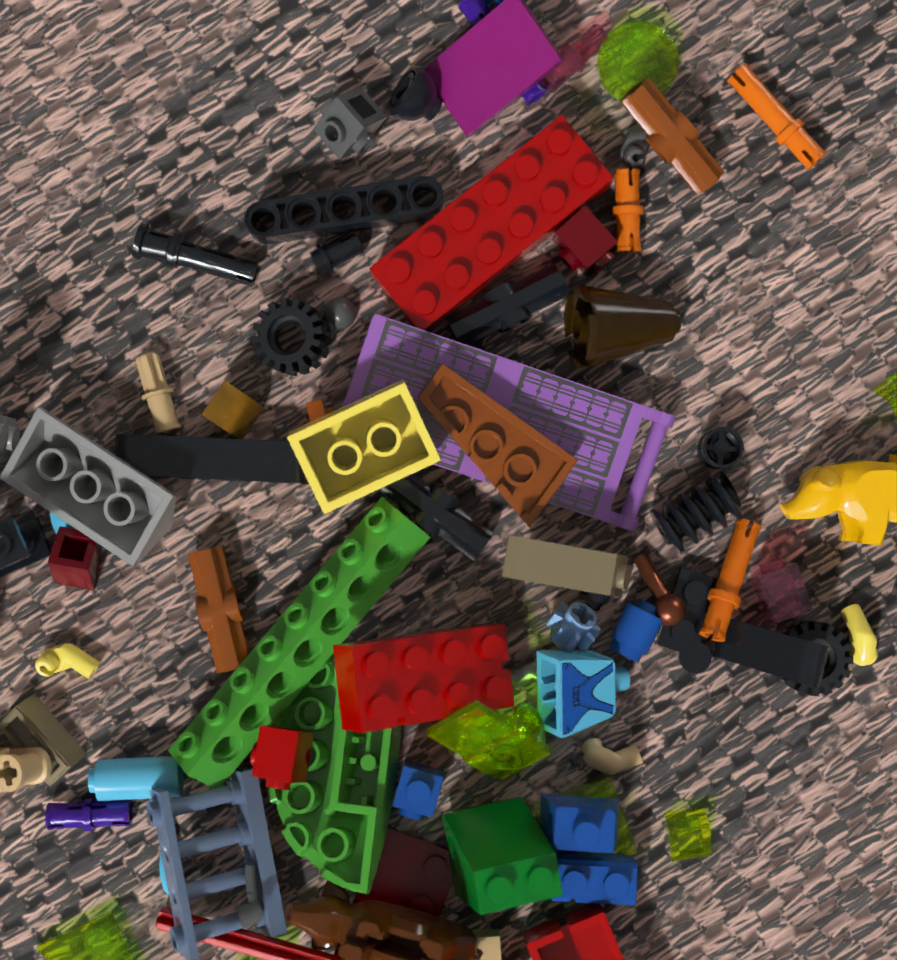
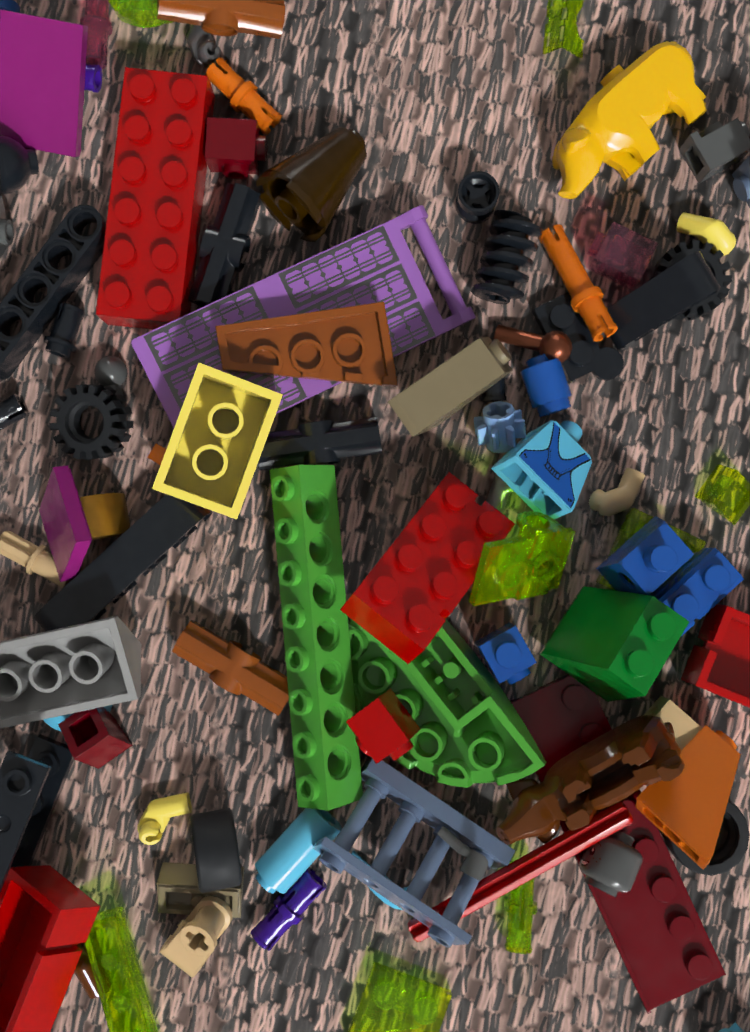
camera: 40 degrees left, 0 degrees up
(81, 723) = (216, 850): none -> black tyre
(203, 393) = (65, 523): none -> magenta tile

